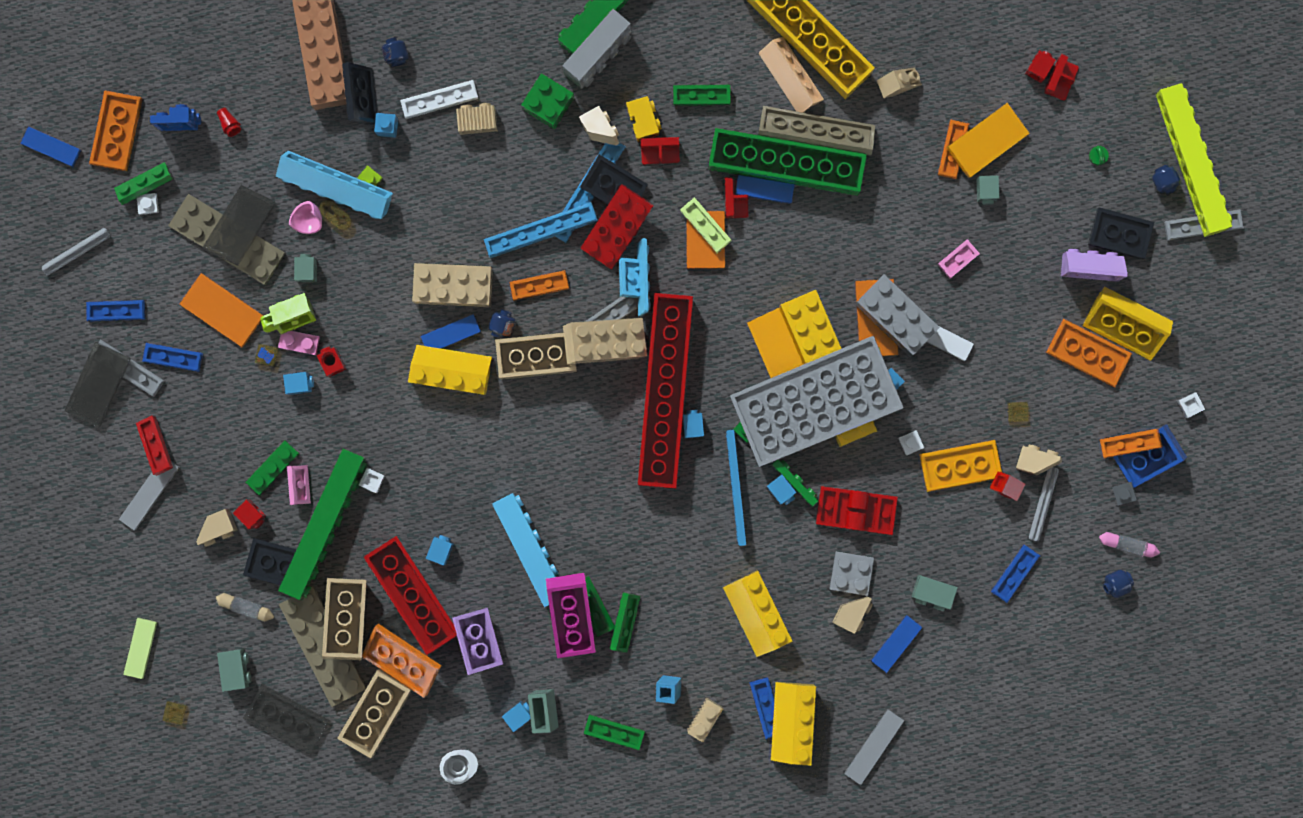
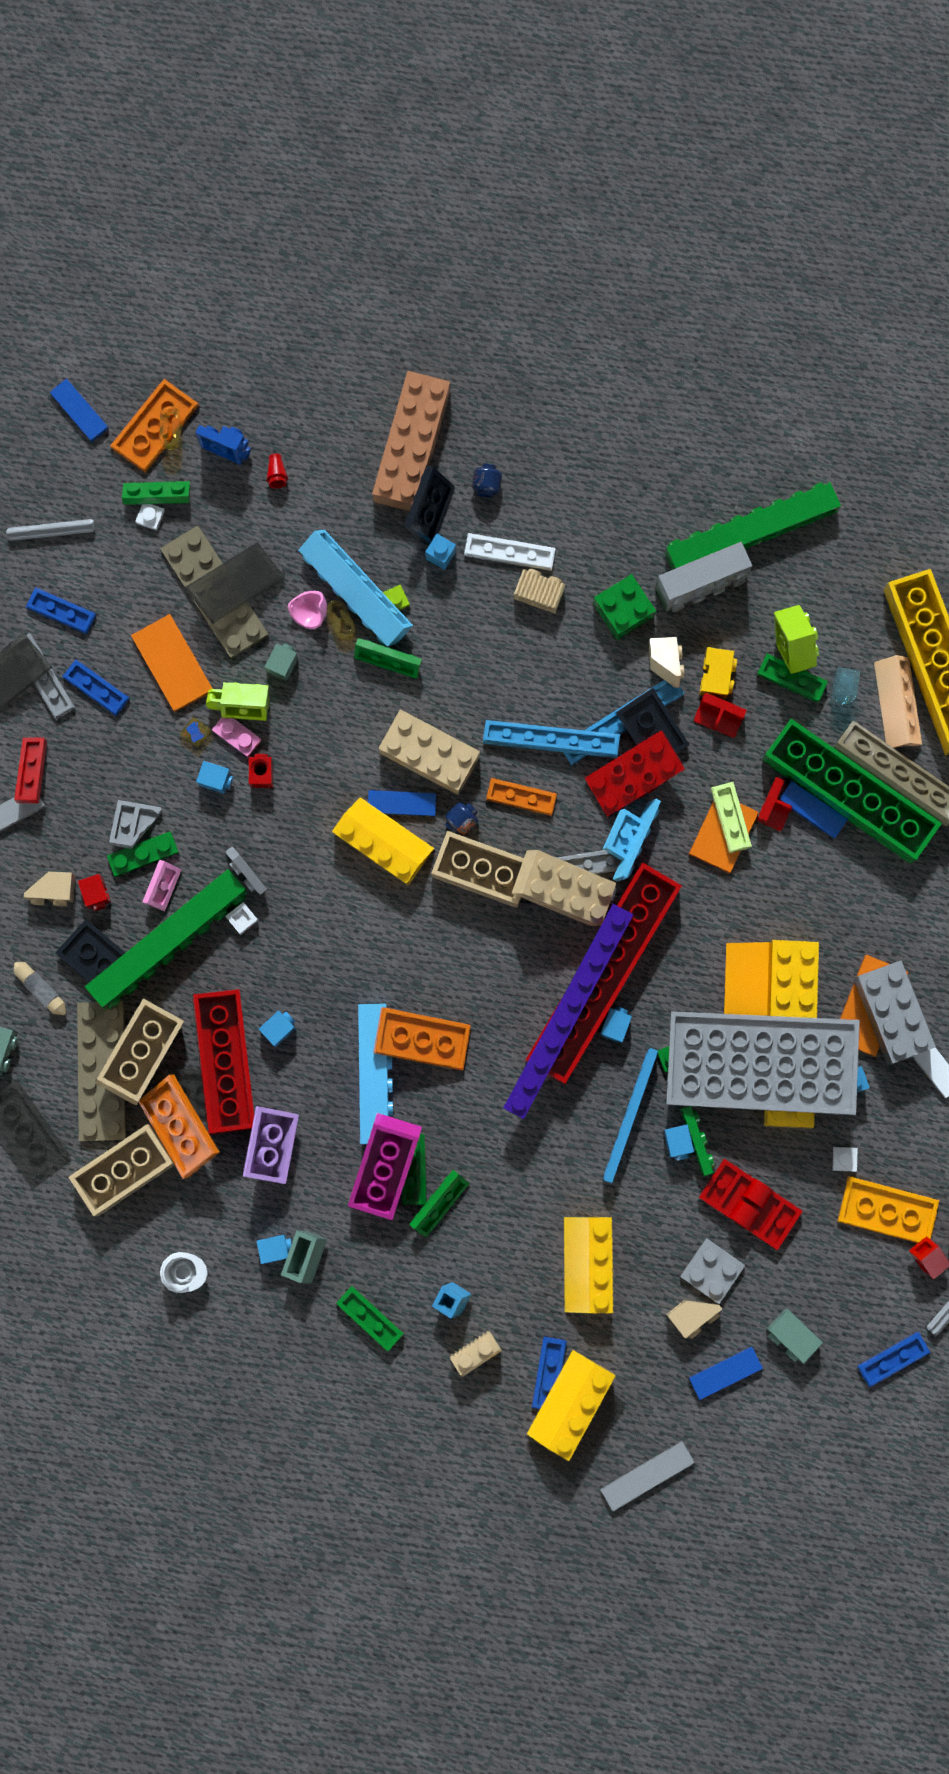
camera: 20 degrees right, 5 degrees down
(124, 128) = (165, 428): none -> clear yellow beam
(252, 448) = (131, 823): none -> light grey wing
(351, 442) = (239, 866): none -> light grey wing
(385, 227) = (387, 658): none -> green plate
(552, 506) = (421, 1039): none -> orange tile
(652, 433) = (568, 1011): none -> dark purple plate
(690, 64) = (796, 639): none -> lime brick
(744, 82) = (845, 685): none -> clear light blue brick

